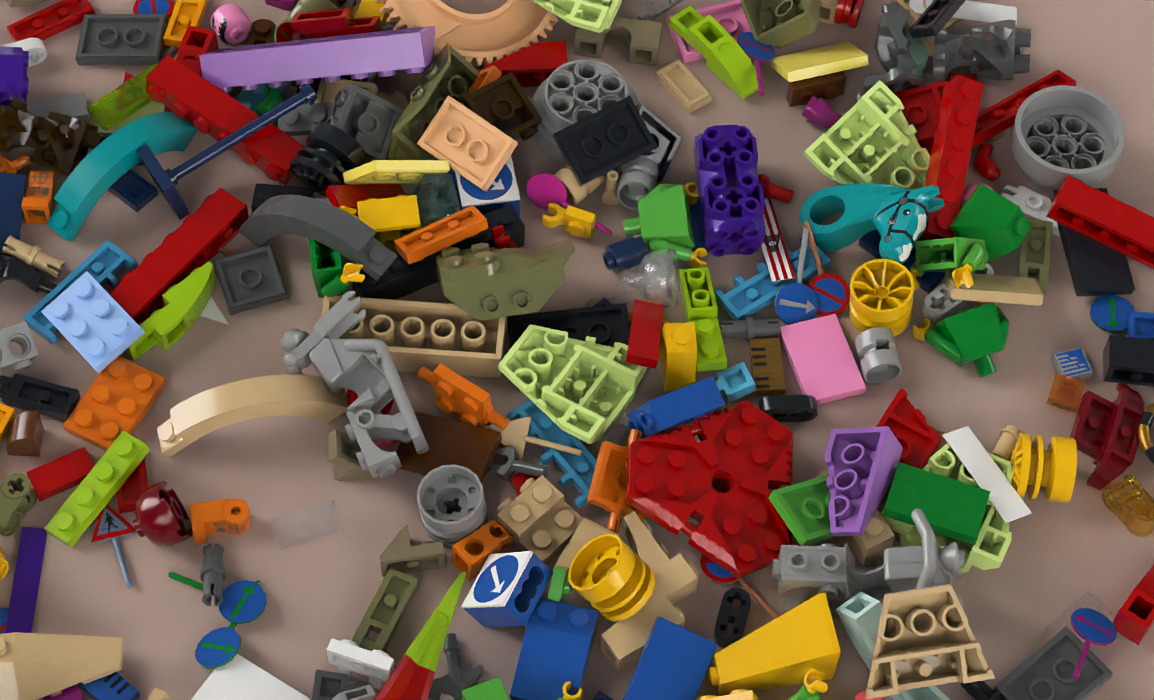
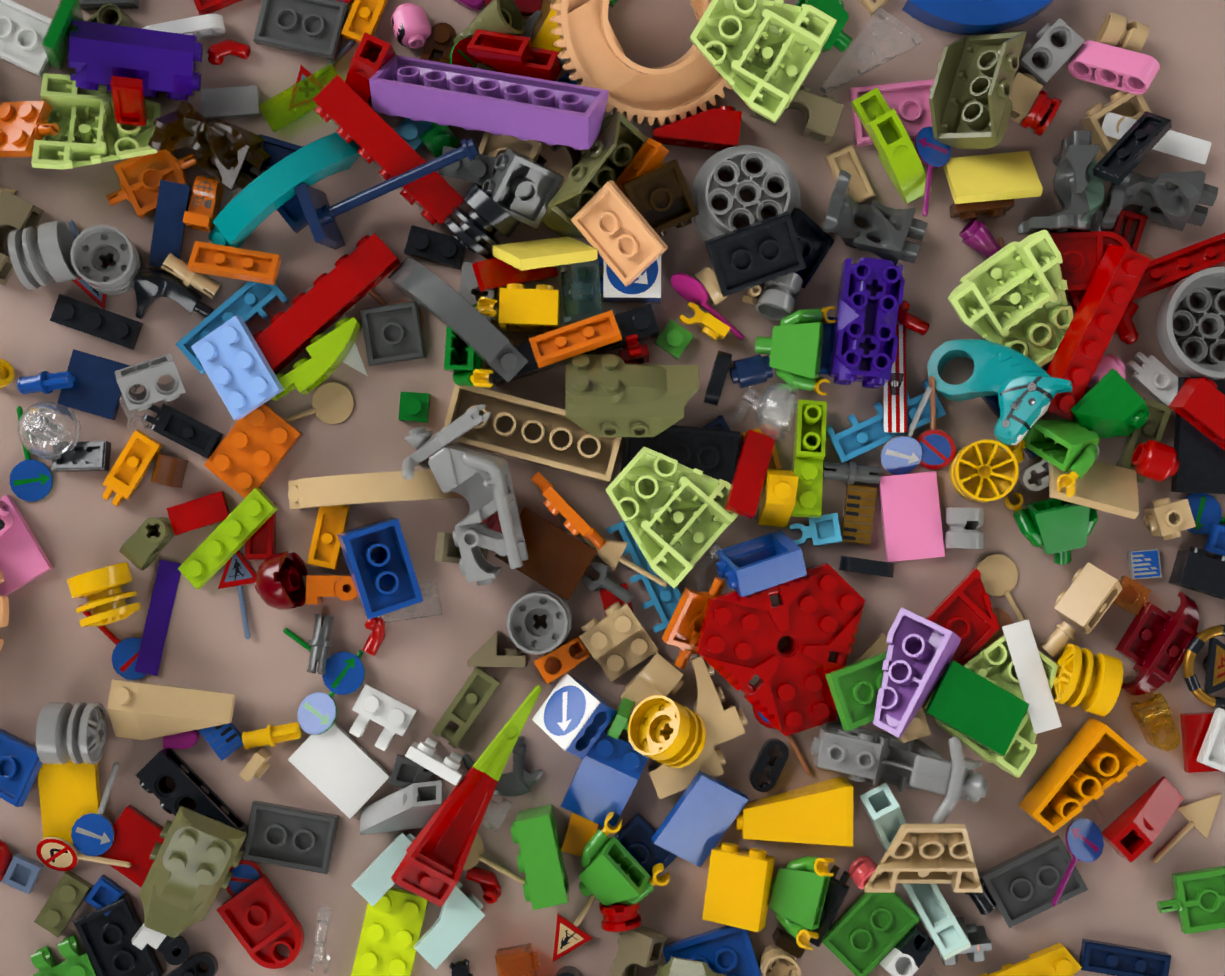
camera: 15 degrees right, 30 degrees up
(59, 68) = (227, 47): none -> red arm
(79, 233) = (234, 263): none -> orange plate
(170, 678) = (271, 735): none -> yellow axle
(192, 354) = (330, 404): none -> tan piece
(208, 468) = (325, 545): none -> light orange hinge
(269, 478) = (380, 567): none -> blue slope
(274, 336) = (414, 407): none -> green plate
(274, 560) = (376, 636): none -> red arm
(292, 634) = (384, 710): none -> white plate
(540, 237) = (674, 339): none -> bright green plate
(592, 266) = (717, 378): none -> black beam
(684, 112) = (880, 236): none -> dark grey hips
(930, 401) = (999, 578): none -> tan piece
(1023, 396) = (1087, 597): none -> tan brick
(1048, 261) = (1155, 460): none -> red head
(1072, 555) = (1080, 774): none -> light orange wedge
(1080, 314) = (1168, 517): none -> tan brick

